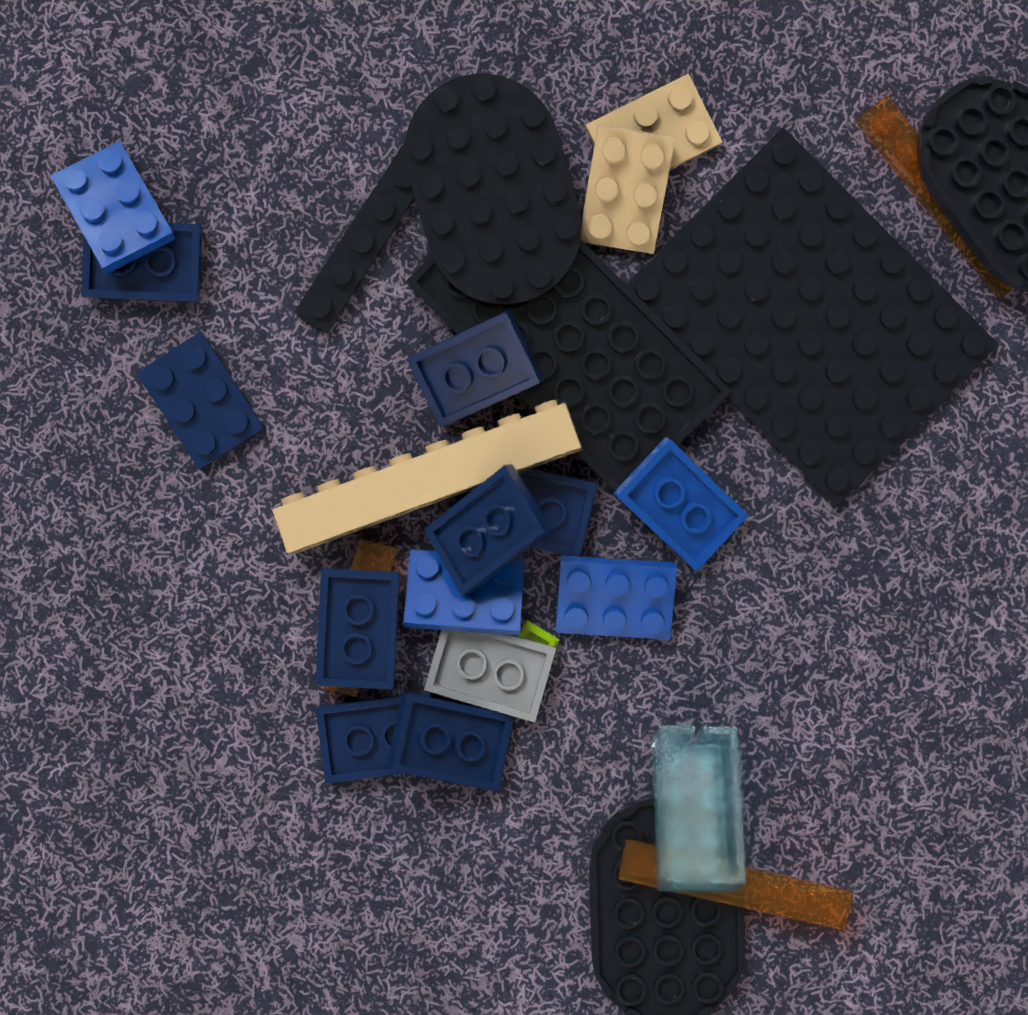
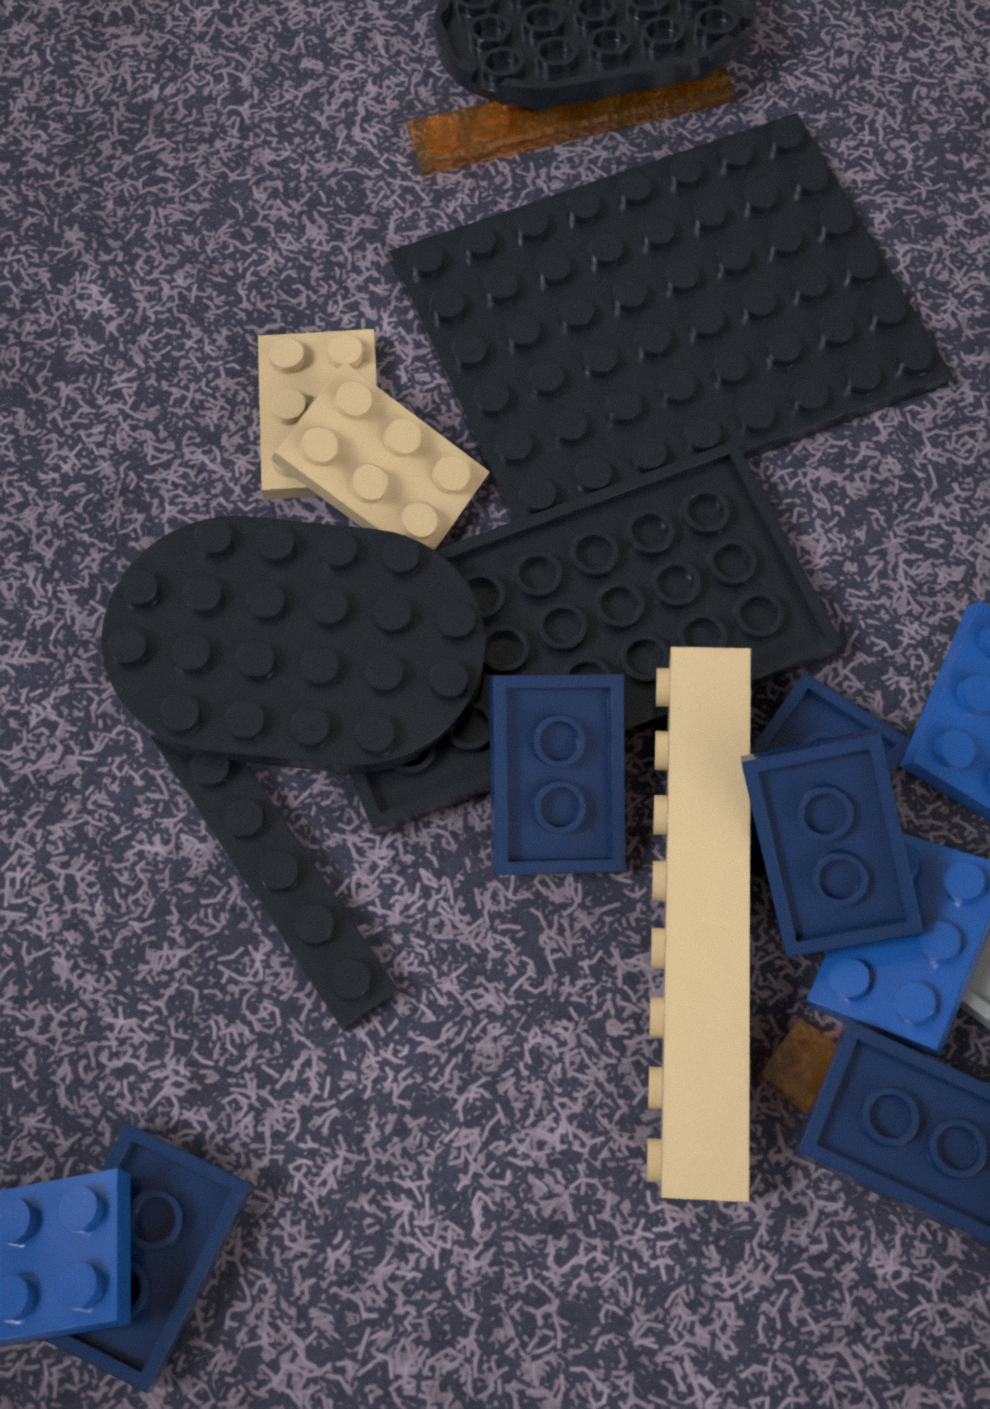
camera: 70 degrees left, 20 degrees down
(200, 400) = (418, 1255): dark blue plate -> none
(681, 504) = (878, 566): blue plate -> none

